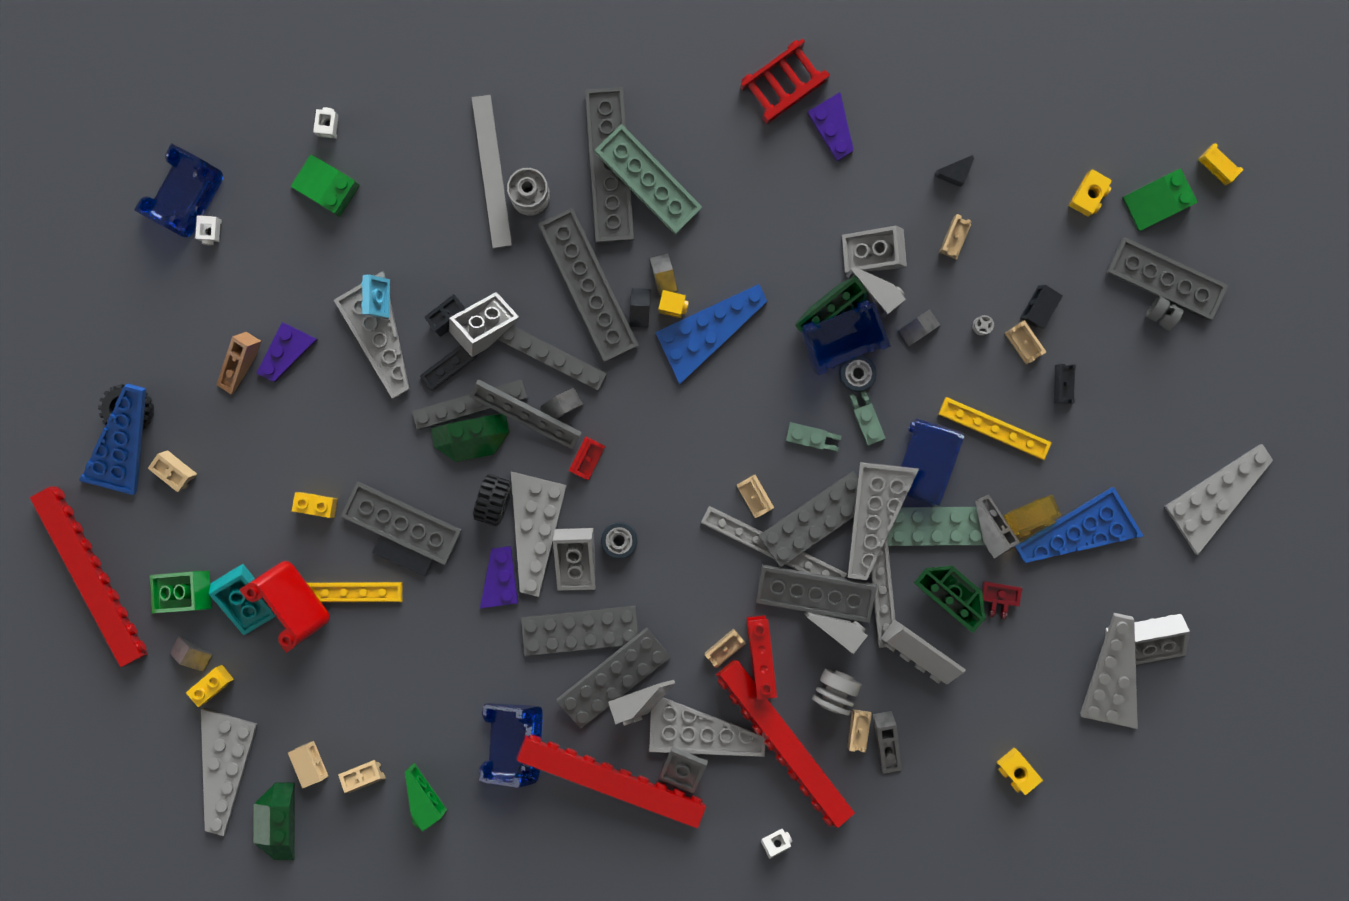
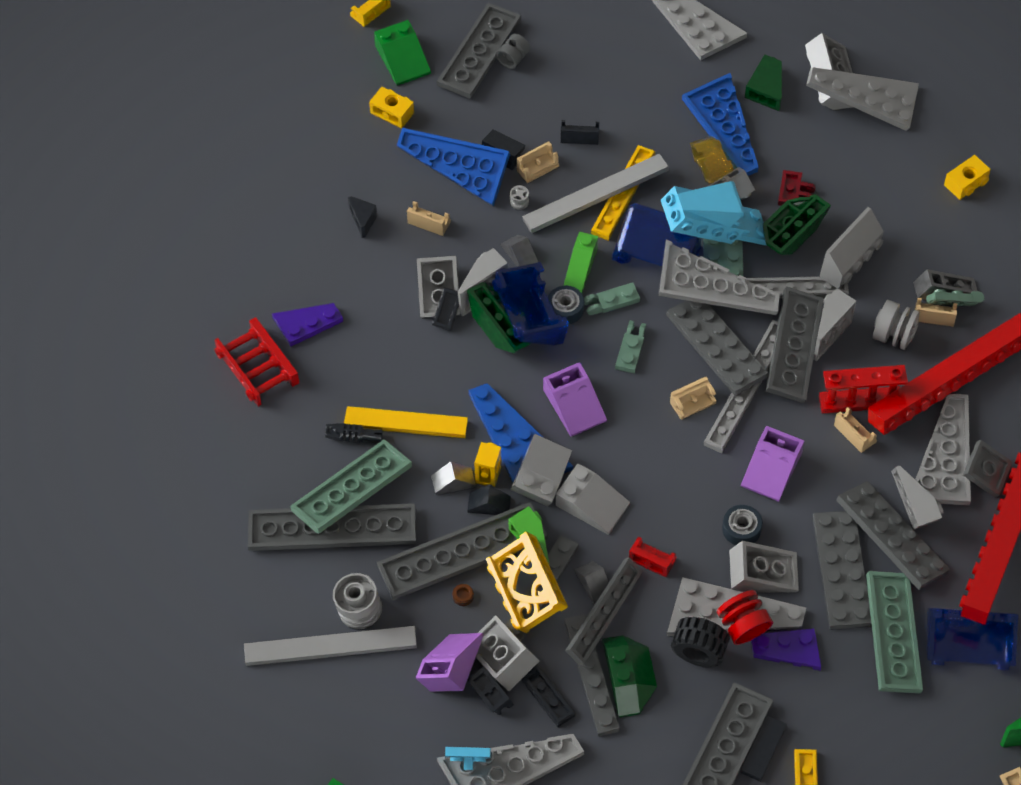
camera: 85 degrees left, 30 degrees down
(471, 278) = (450, 663): none -> medium lavender slope
(513, 540) = (744, 617): none -> red wheel
(514, 674) = (894, 632): none -> sand green plate
(528, 332) = (551, 591): none -> yellow fence
(545, 287) = (463, 595): none -> reddish brown tile
(598, 346) = (528, 522): none -> bright green slope
(643, 402) = (591, 499): none -> light grey slope
(667, 354) = (541, 470): none -> light grey slope
(683, 569) = (772, 463): none -> medium lavender slope
(709, 177) = (352, 433): none -> black hinge
(724, 227) = (407, 422): none -> yellow tile
(747, 384) = (574, 399): none -> medium lavender slope
(847, 258) = (446, 309): none -> black tile
(871, 752) = (941, 297): none -> sand green hinge
(904, 387) = (581, 260): none -> bright green slope
(948, 515) = (713, 214): none -> medium azure wedge
(989, 401) = (595, 193): none -> light grey tile
(1022, 267) = (465, 163): none -> blue wing
(1132, 573) = (766, 83): none -> dark green slope

